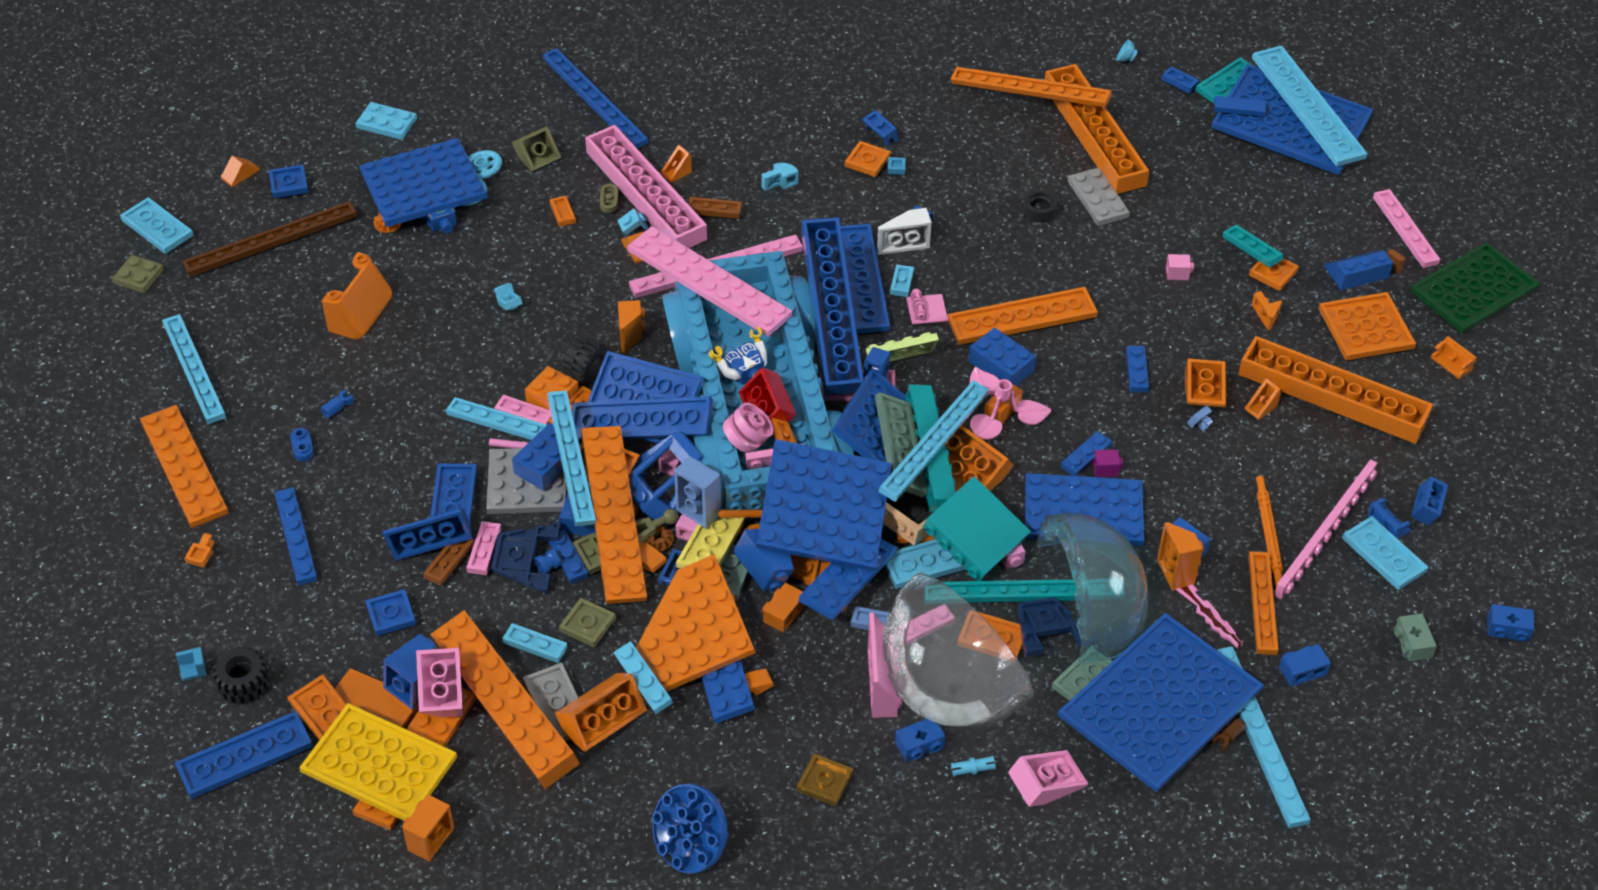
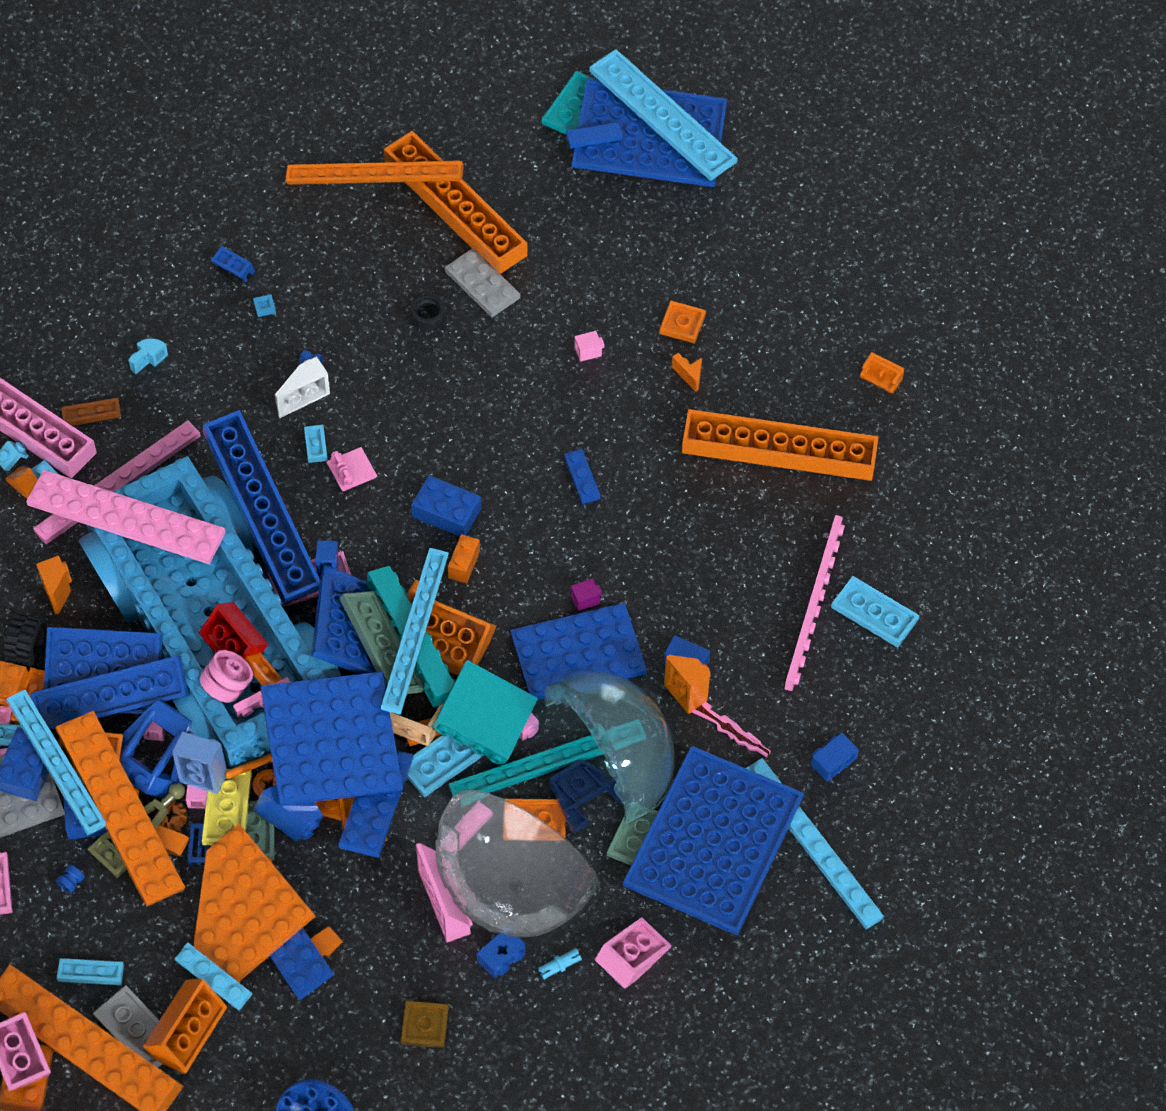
camera: 20 degrees left, 10 degrees up
(516, 555) = (35, 882): dark blue wing -> none
(570, 560) = (91, 868): blue plate -> none
(587, 622) = (134, 932): olive plate -> none
(677, 165) = (33, 372): orange slope -> none
(743, 361) = (194, 598): torso -> none
(783, 607) = (322, 854): orange brick -> none
(861, 617) = (406, 839): medium blue plate -> none
(864, 279) = (277, 451): blue plate -> none
(867, 158) = (231, 305): orange plate -> none
(906, 348) = (348, 524): yellowish green plate -> none
(988, 427) = (457, 591): bright pink plant -> none
(1023, 315) = (450, 448): orange plate -> none
(1084, 455) = (561, 589): blue plate -> none
(1127, 52) = (458, 96): medium azure piece -> none
(1180, 79) = (523, 115): blue plate -> none
(1201, 418) = (661, 516): medium blue tile -> none
(1205, 382) = (655, 477): orange slope -> none
(1229, 734) = (786, 851): reddish brown bar -> none
(1253, 245) = (654, 300): teal plate -> none
(1263, 603) = (777, 702): orange plate -> none
(1264, 399) = (715, 477): orange slope -> none
(1269, 529) = (761, 620): orange axle -> none
(1360, 269) = (765, 295): blue slope -> none
(1367, 326) = (790, 360): orange plate -> none
(1388, 519) = (868, 573): blue hinge -> none
(1397, 259) = (796, 276): dark orange plate -> none
(1406, 228) = (797, 233): bright pink plate -> none
(1415, 637) = (926, 694): sand green brick -> none
(1429, 500) = (902, 543): blue brick -> none
(1474, 287) = (881, 284): dark green plate -> none
(1510, 622) = (1008, 651): blue brick -> none

